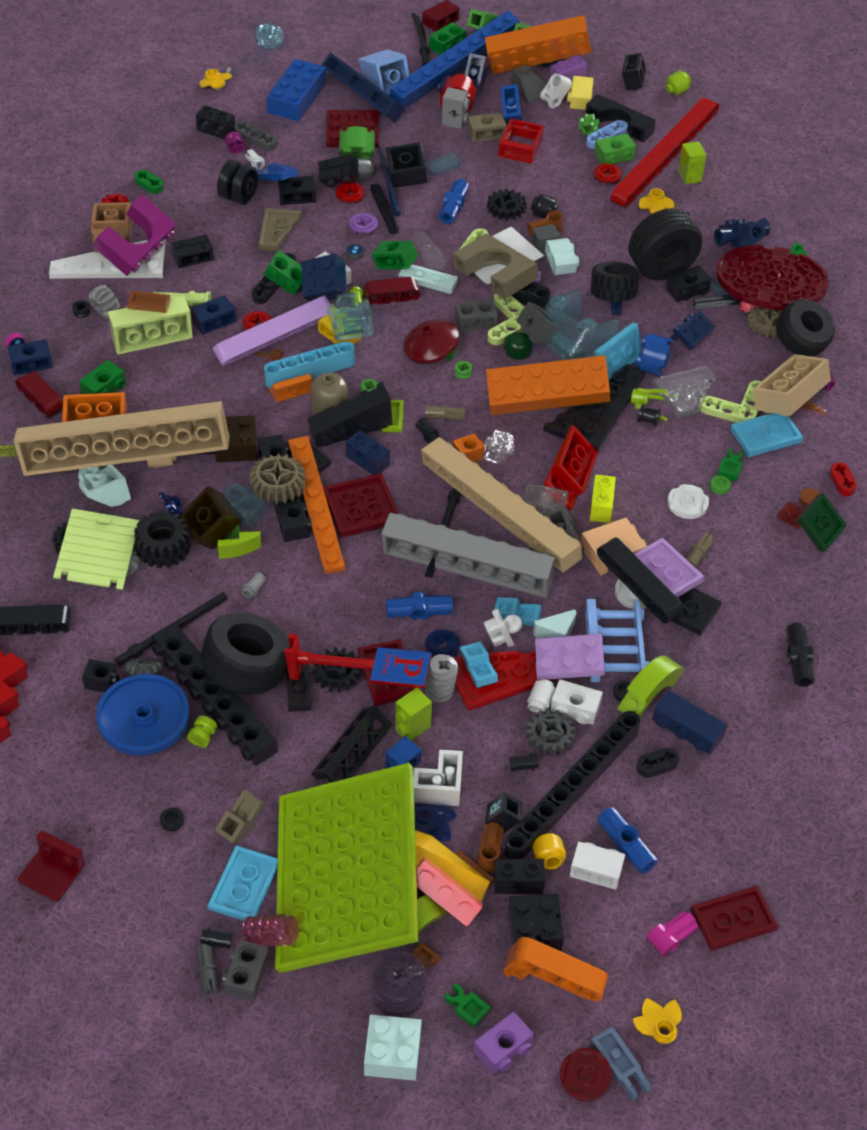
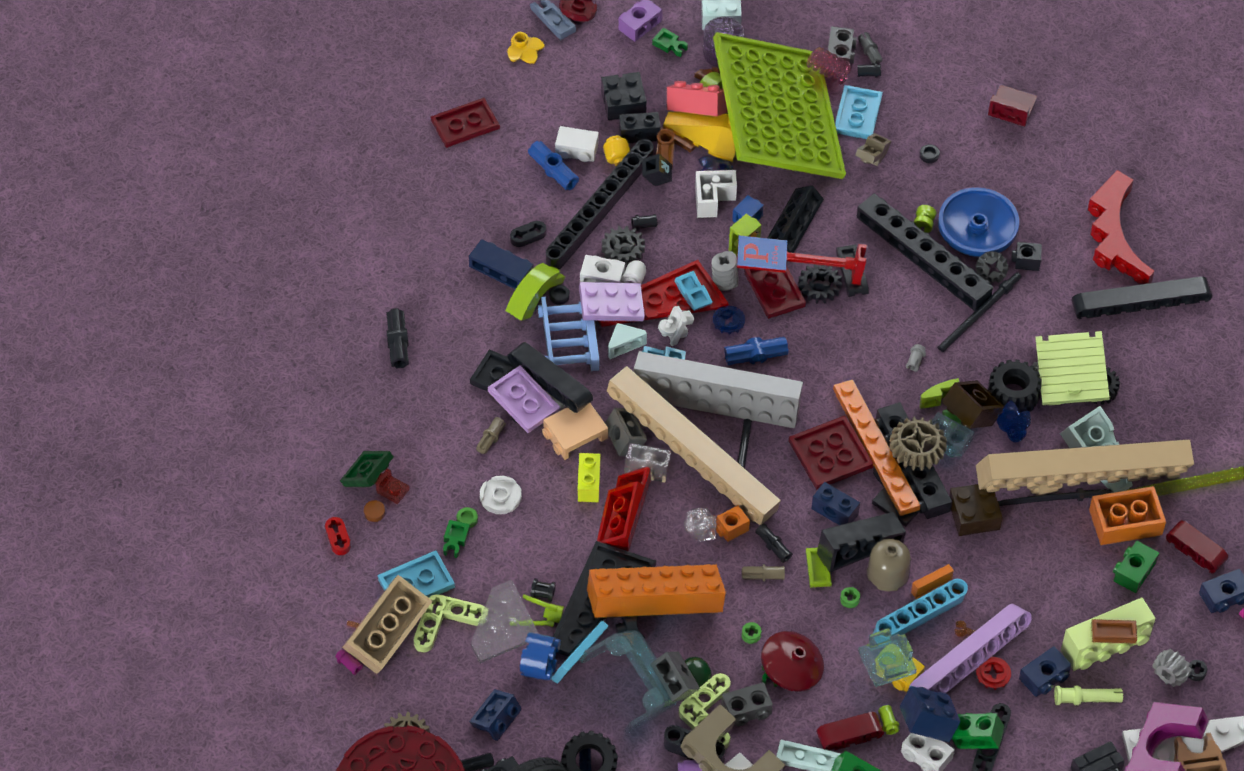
camera: 175 degrees right, 5 degrees up
(239, 671) = (894, 244): black tyre -> none
(555, 967) = (605, 62): orange beam -> none
(669, 936) = (517, 100): dark pink piece -> none
(805, 328) = (365, 708): black tyre -> none

